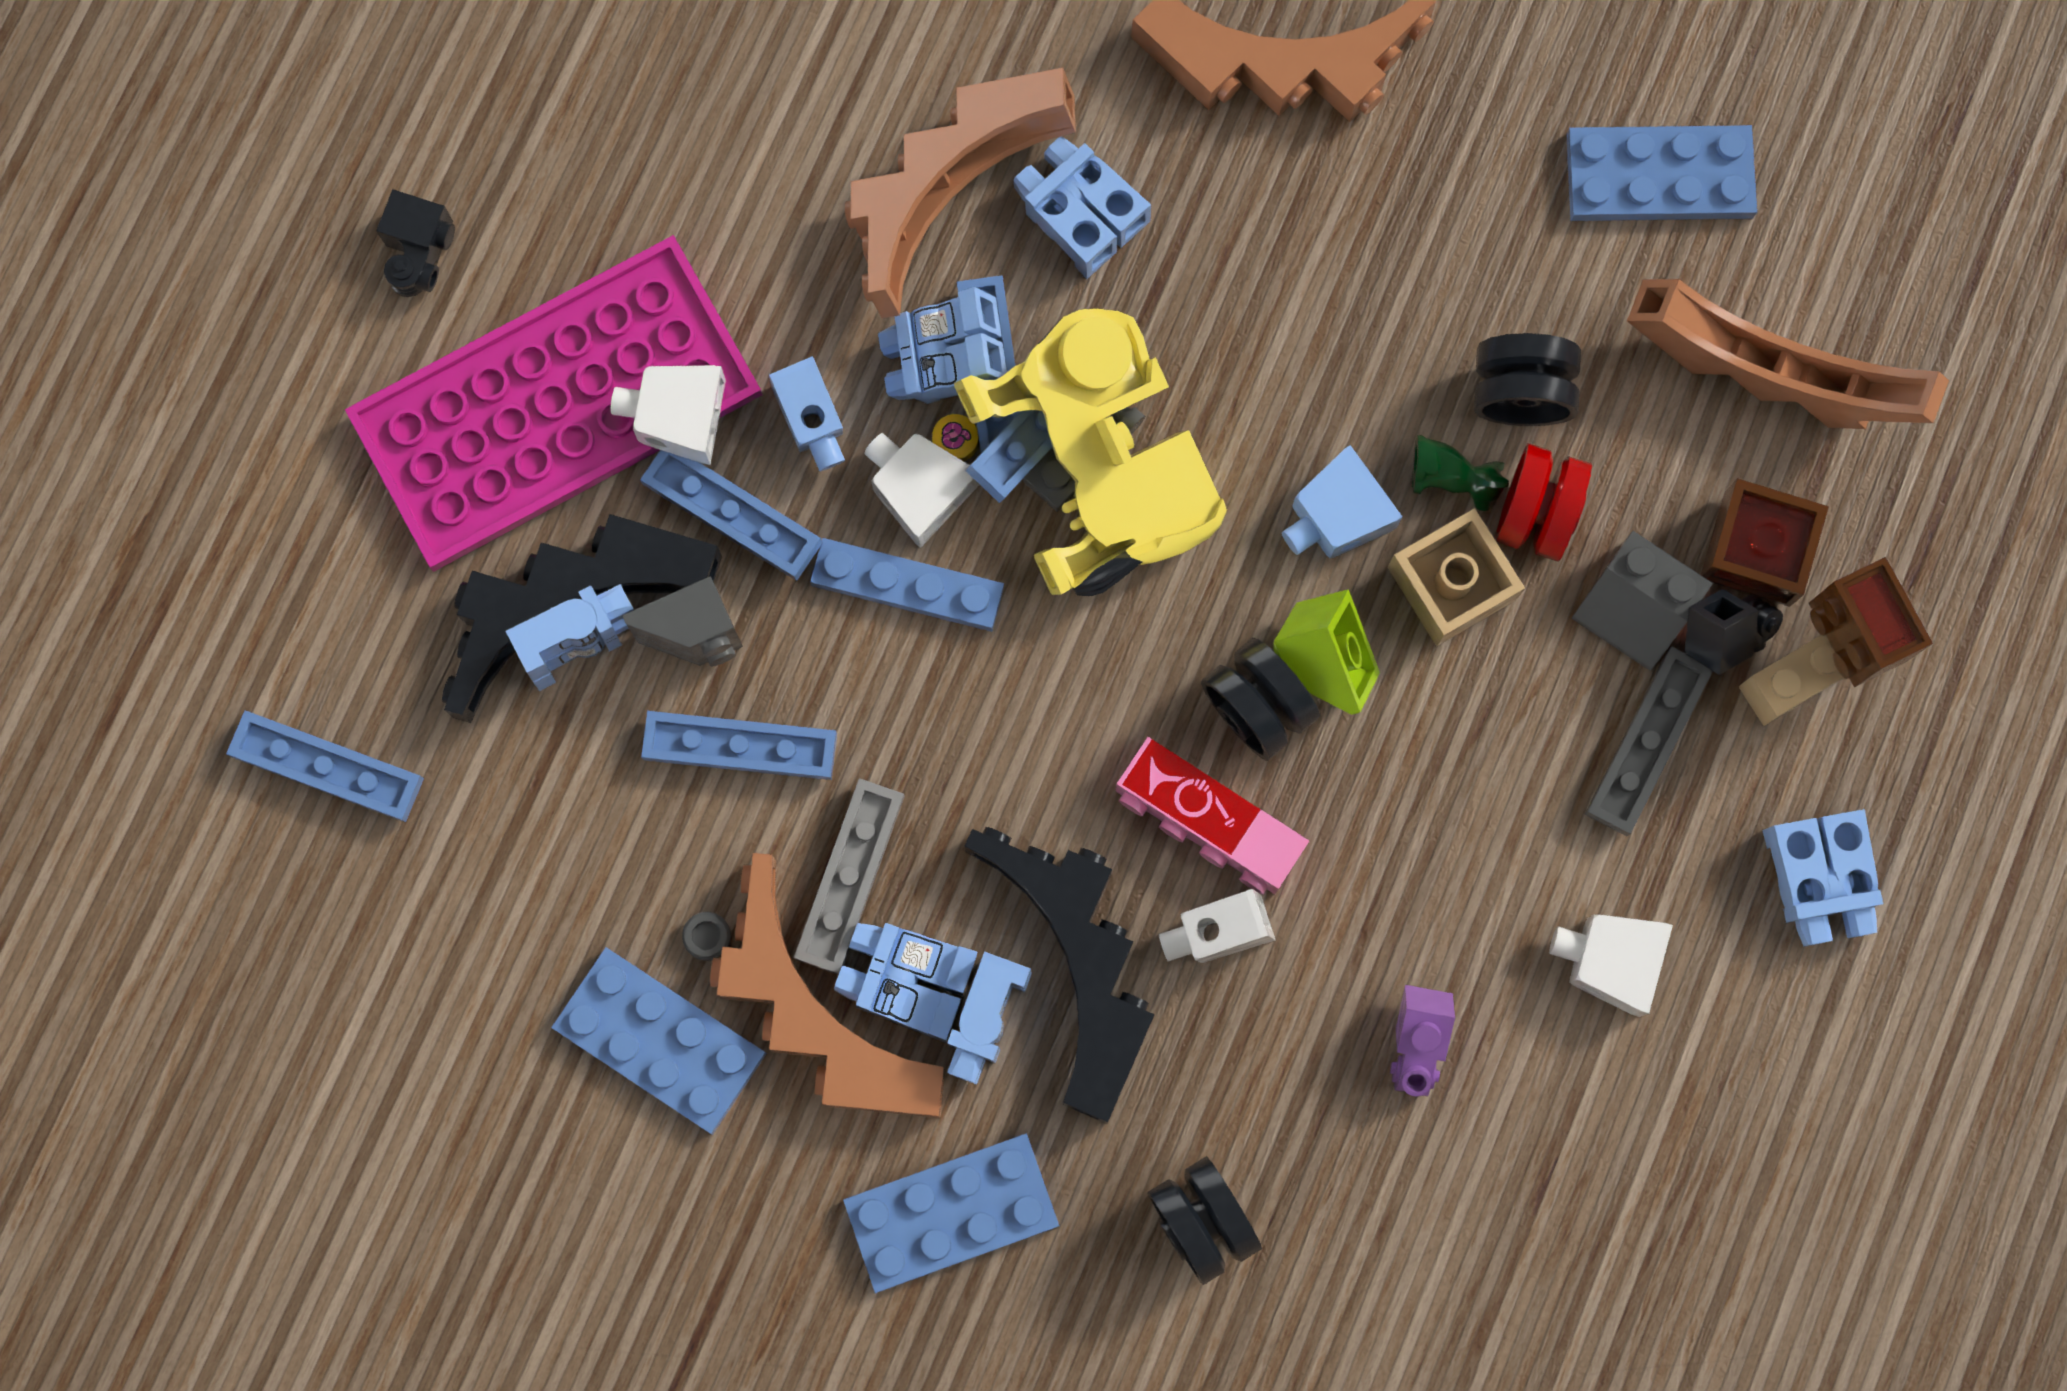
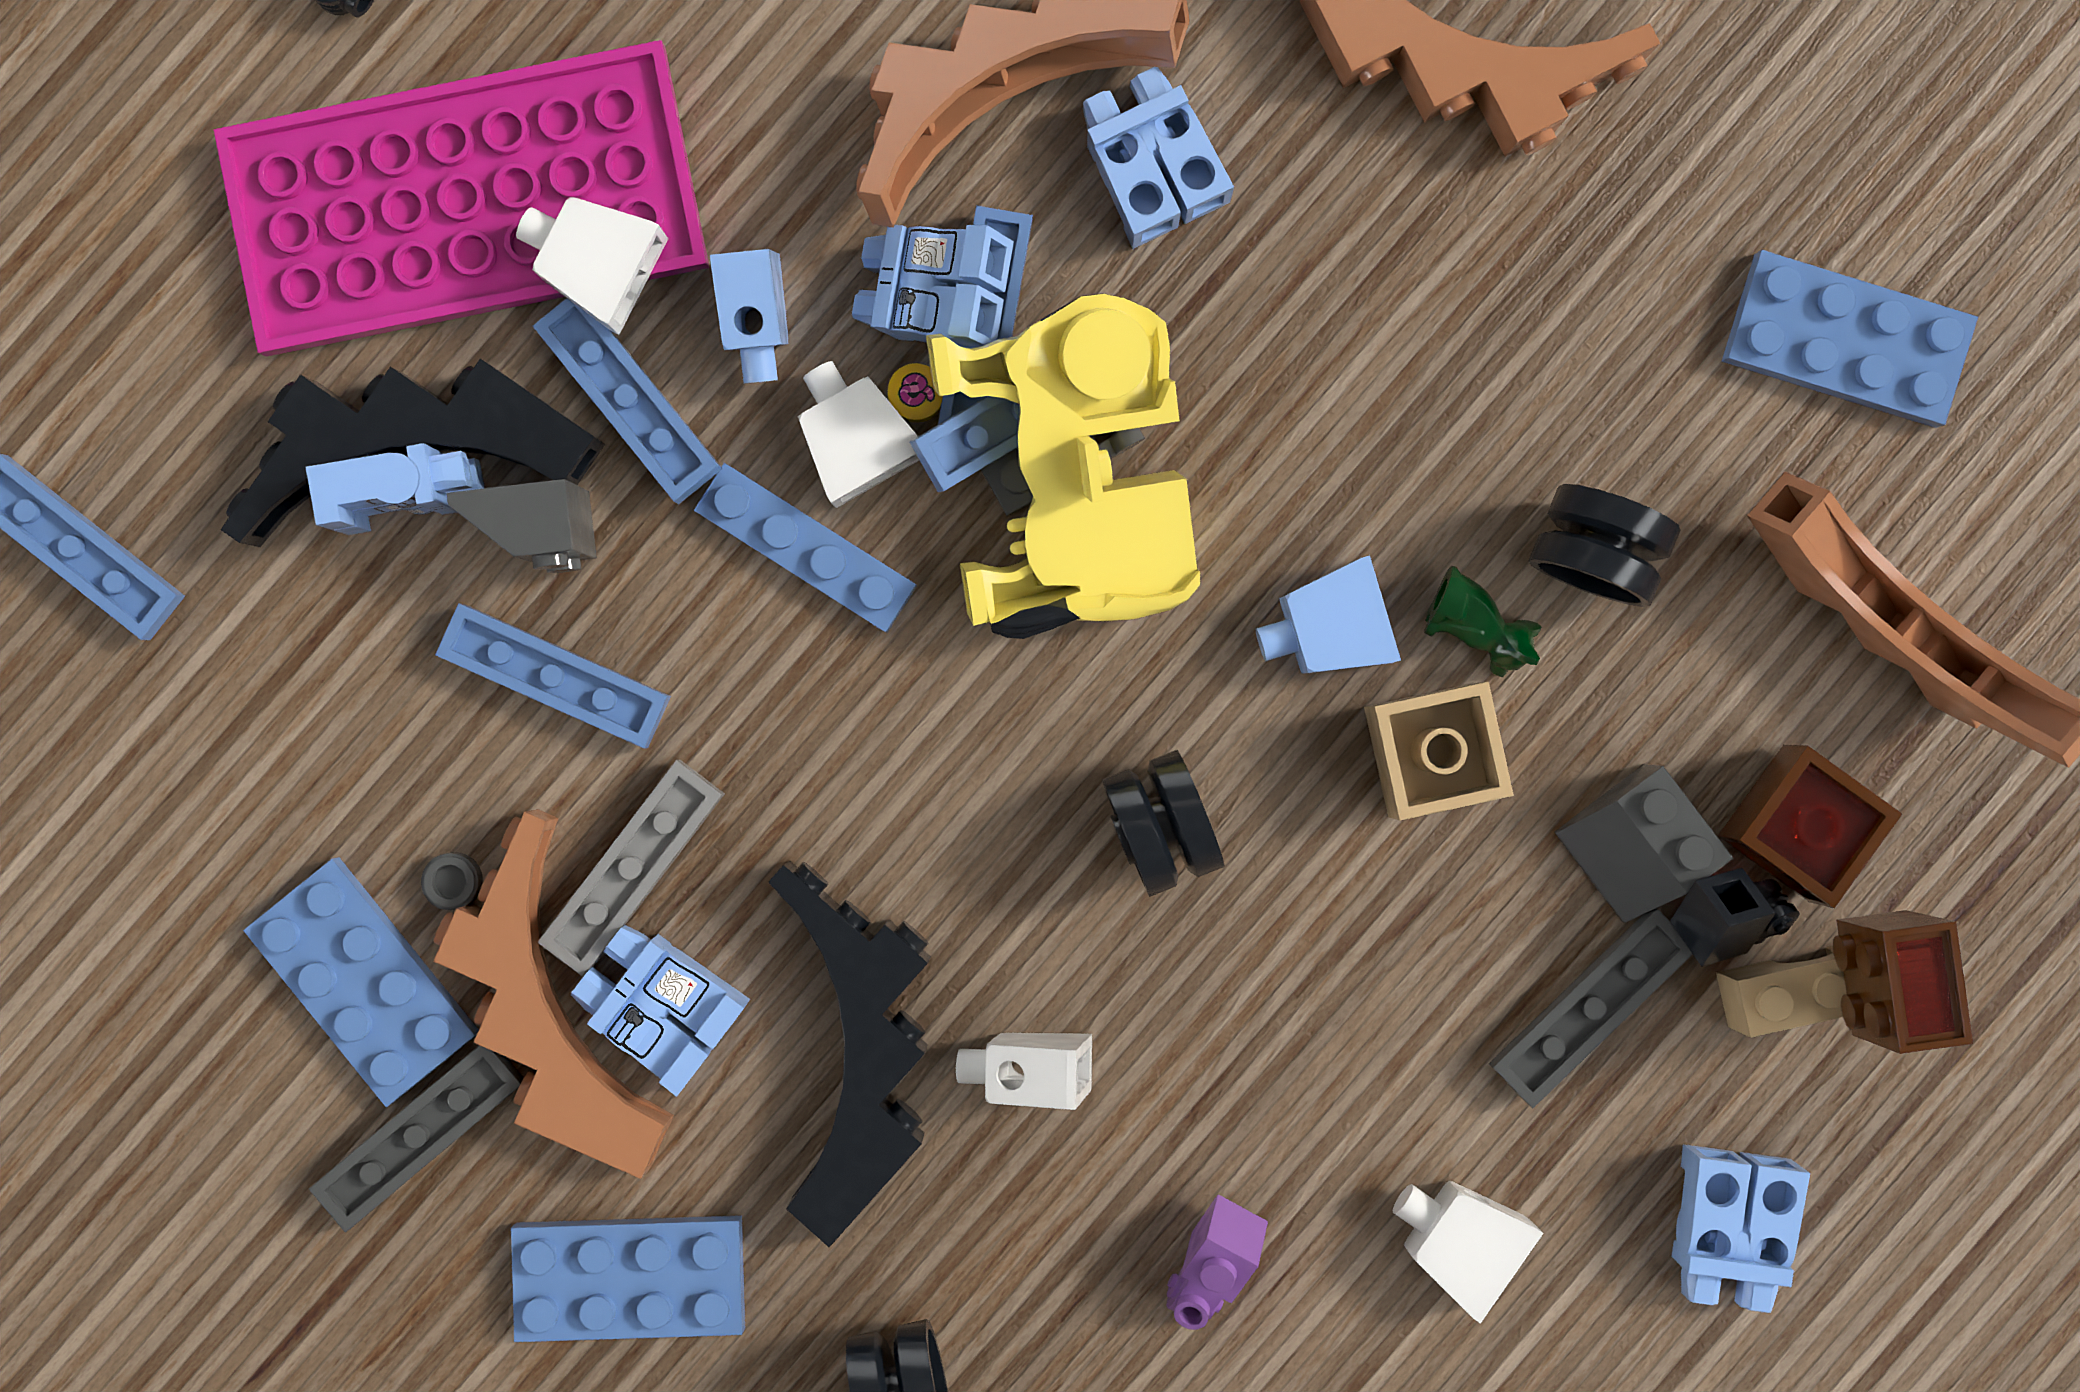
camera: 20 degrees right, 10 degrees up
(743, 1148) = (416, 1136): none -> dark grey plate
(982, 1015) = (716, 1099): light blue hips -> none
(1210, 816) = (1063, 934): brick -> none
(1329, 650) = (1260, 792): lime slope -> none
(1549, 504) = (1571, 697): red wheel -> none

